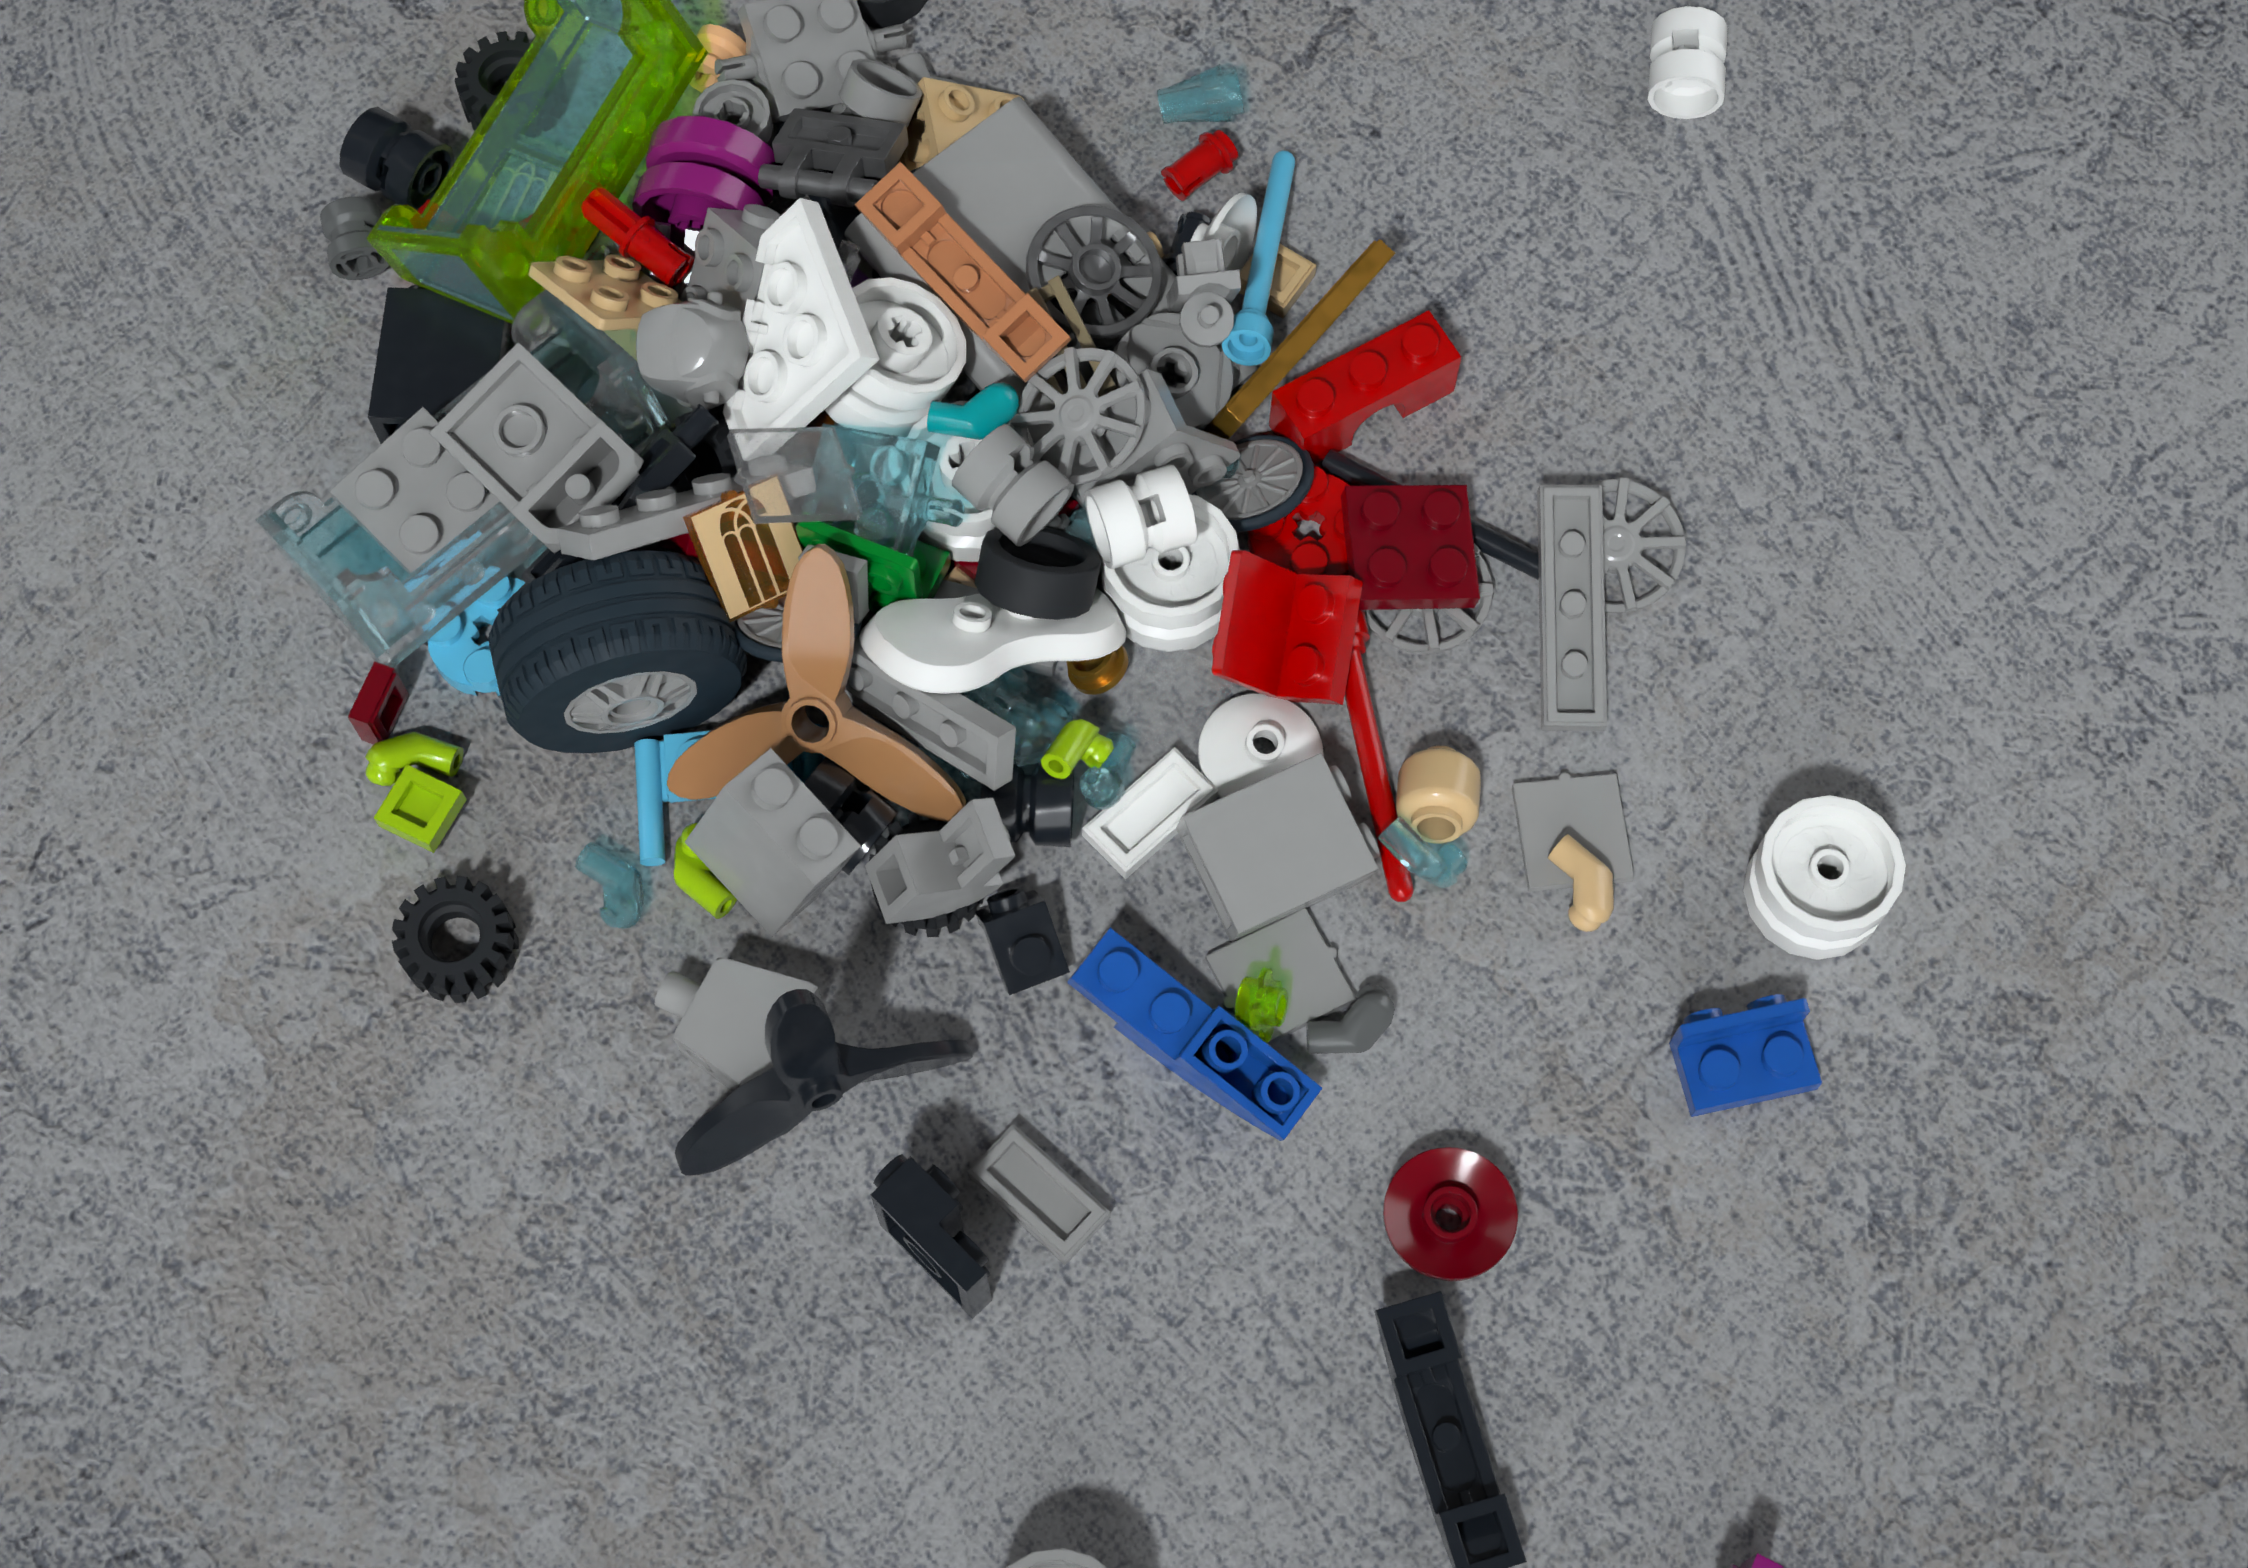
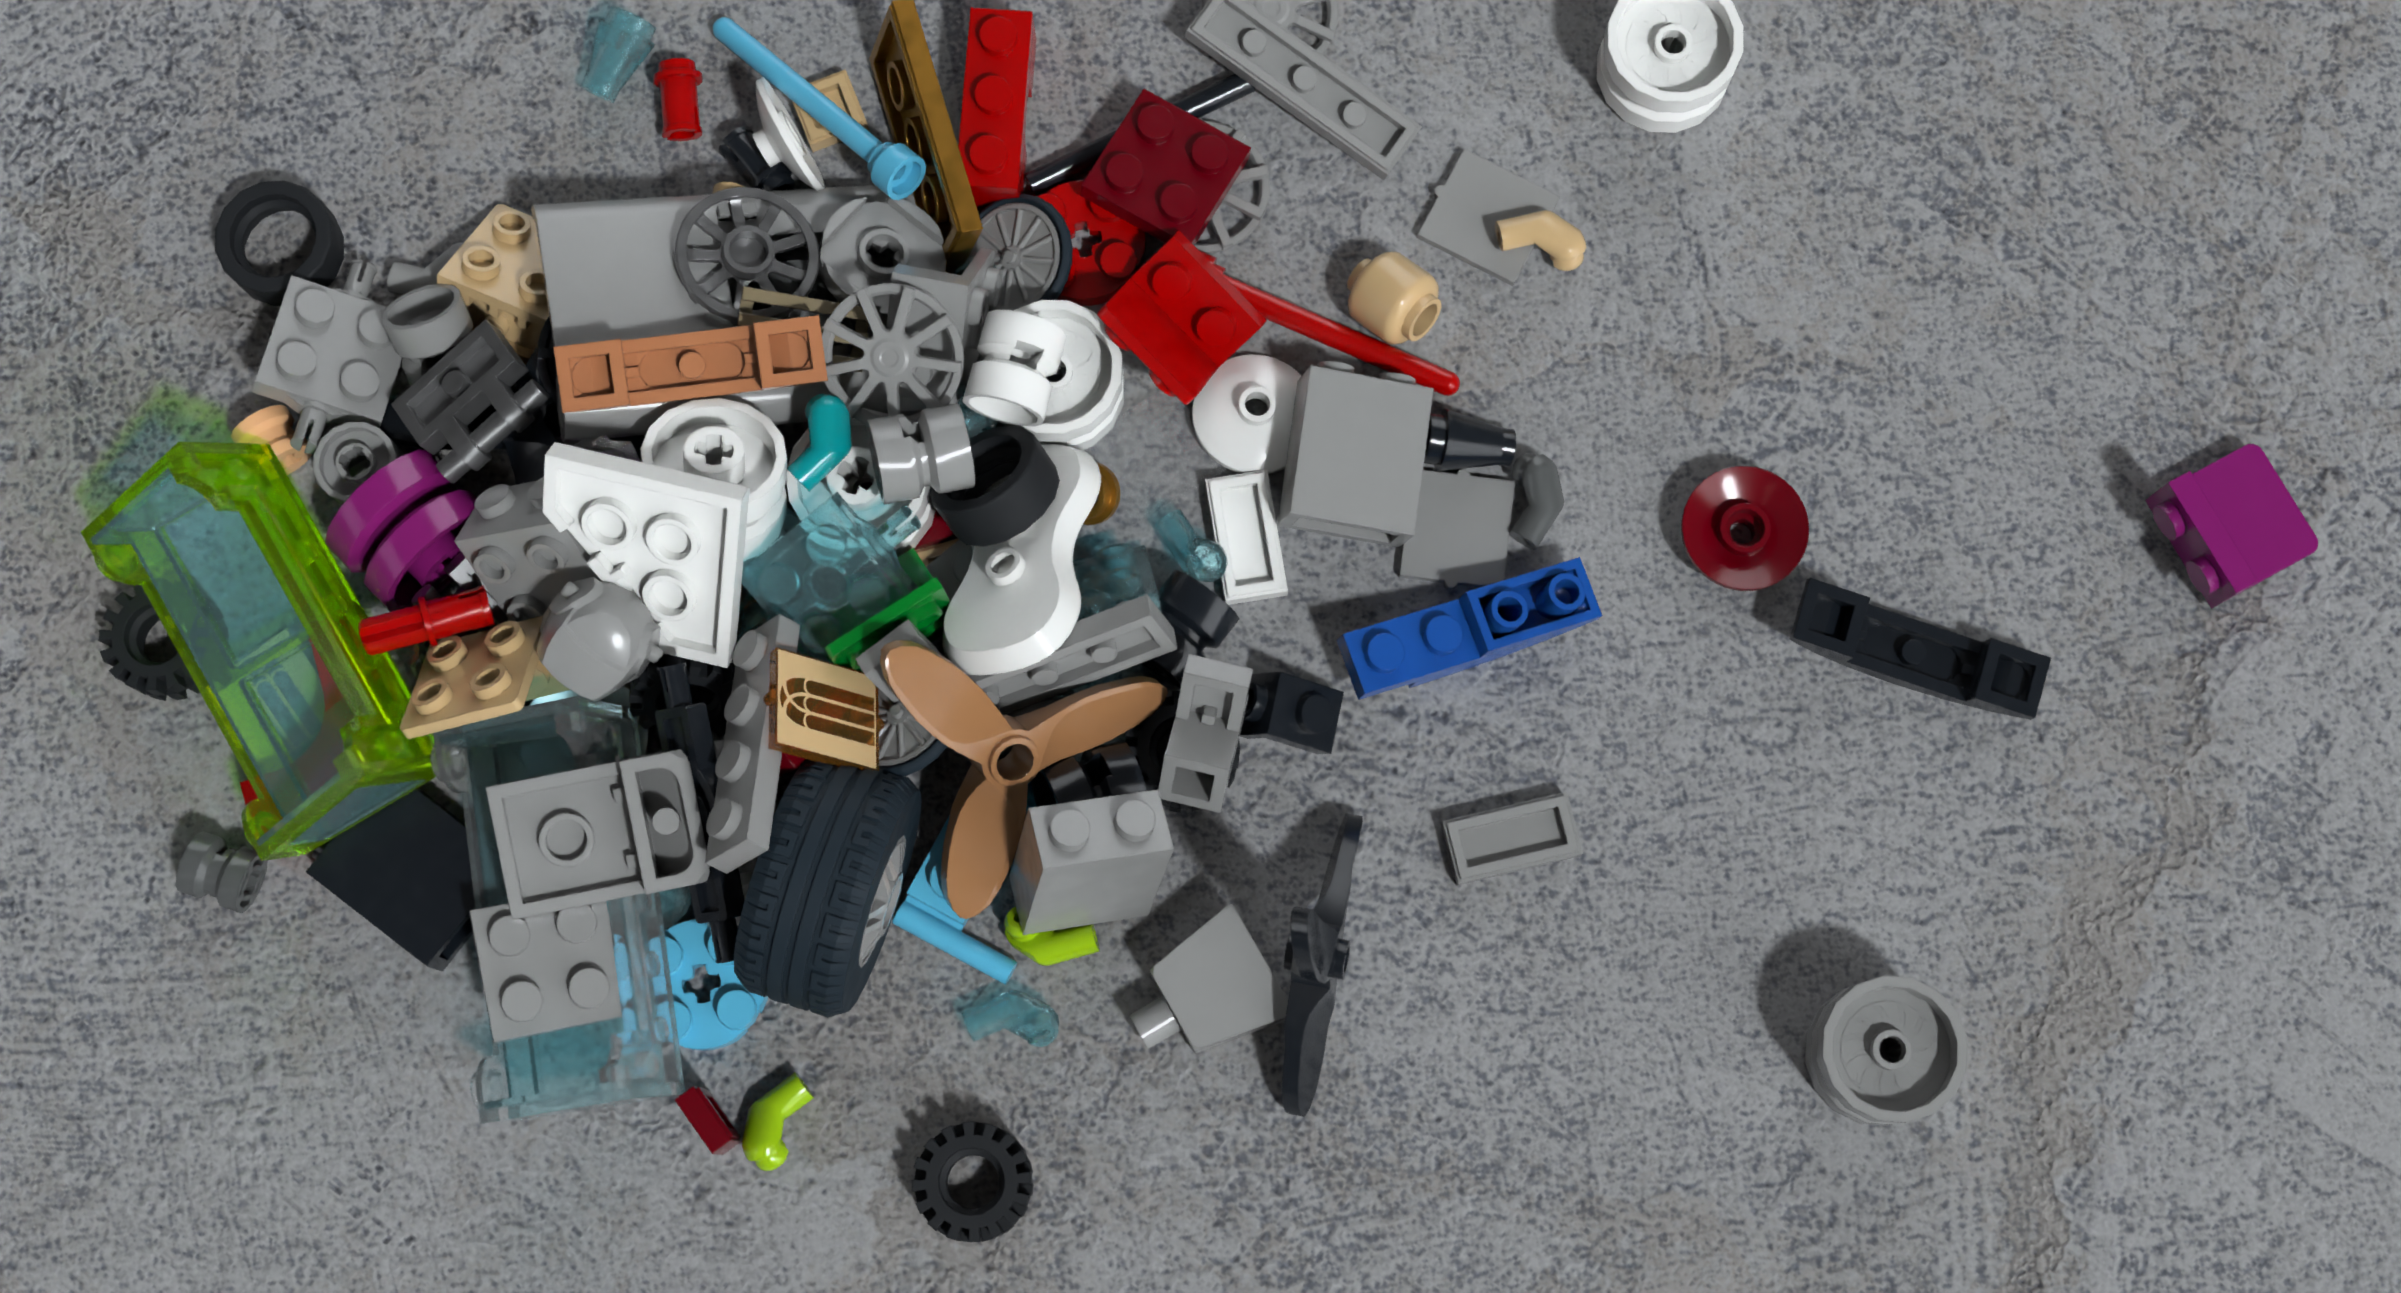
camera: 55 degrees left, 10 degrees up
(394, 158) = (178, 783): black wheel -> none
(420, 808) = (830, 1141): lime plate -> none
(794, 474) = (784, 629): clear piece -> none
(926, 1221) = (1490, 941): black plate -> none
(1074, 742) = (1164, 557): lime arm -> none
(1203, 293) = (836, 178): light grey hips -> none
(1261, 1003) = (1480, 557): clear neon green plate -> none
(1357, 933) = (1465, 442): none -> black cone
(1419, 858) = (1434, 351): clear light blue arm -> none
(1744, 1055) = (1765, 218): blue bracket -> none

